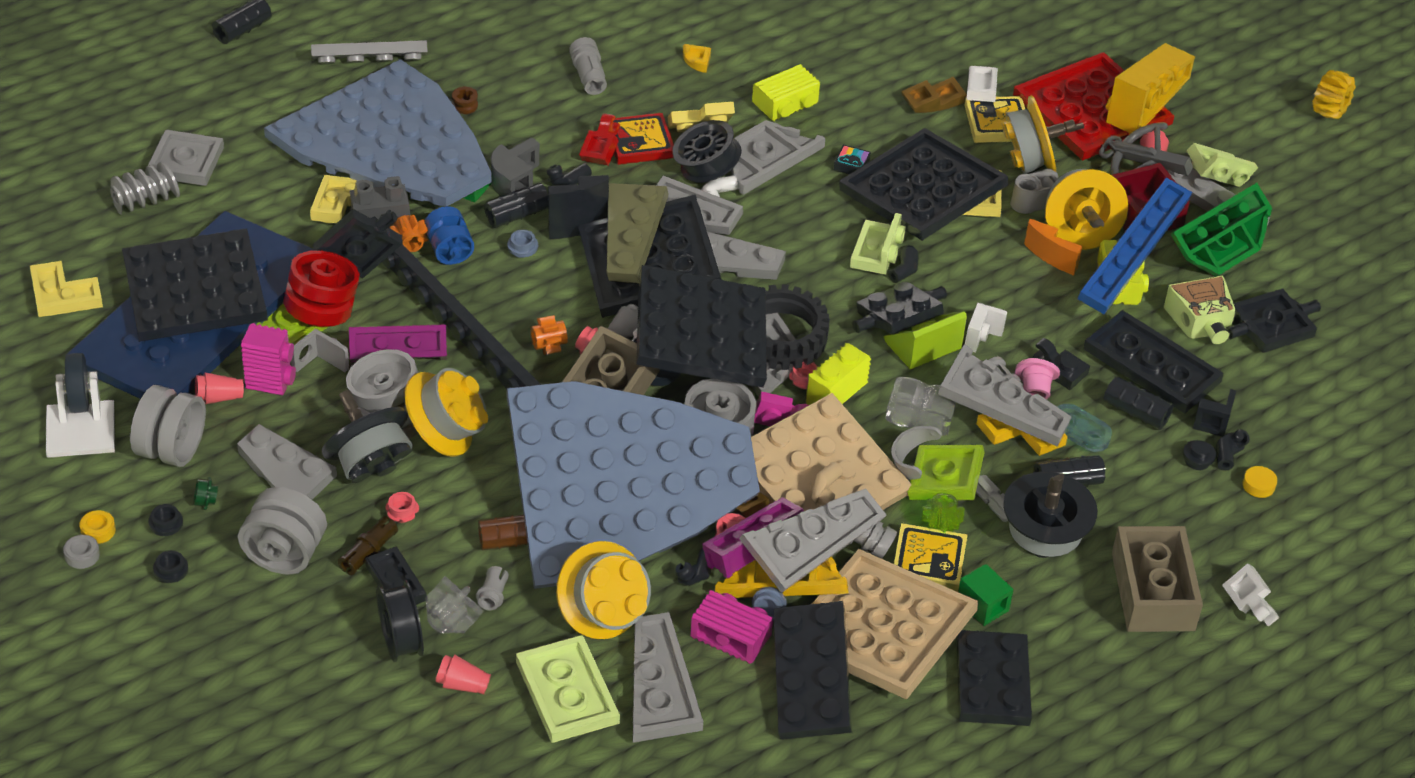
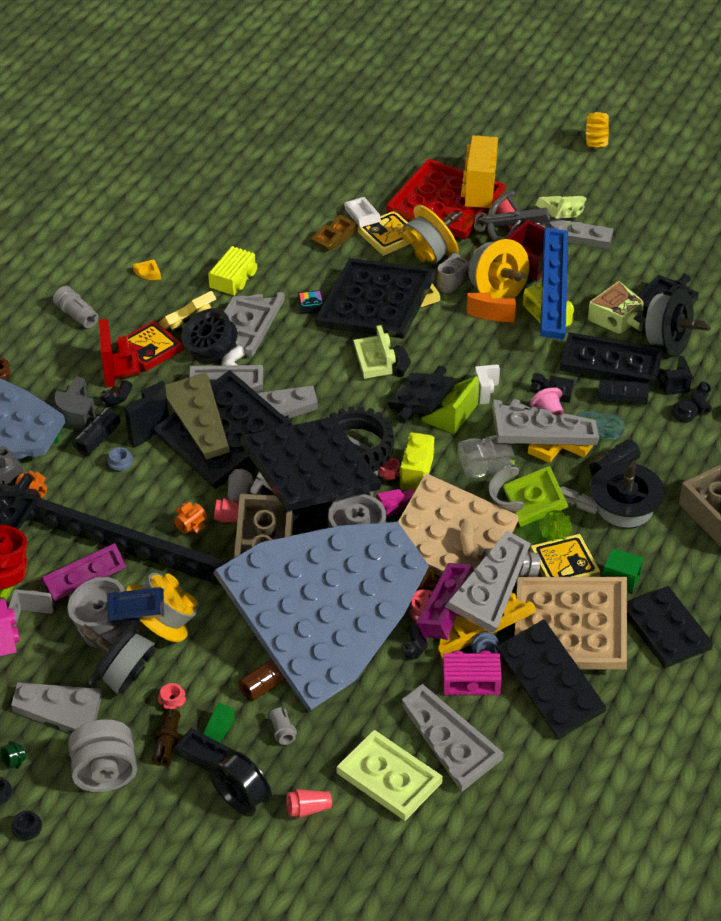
camera: 25 degrees left, 0 degrees up
(410, 392) = (135, 604): none -> dark blue tile
(431, 556) = (220, 722): none -> green piece
(449, 235) = (63, 475): blue wheel -> none
(450, 608) = (266, 753): clear piece -> none
(578, 123) = (106, 353): none -> red tile
(602, 590) = (372, 688): yellow piece -> none
(1226, 232) = (596, 249): green wedge -> none
(1249, 345) = (671, 321): none -> piece

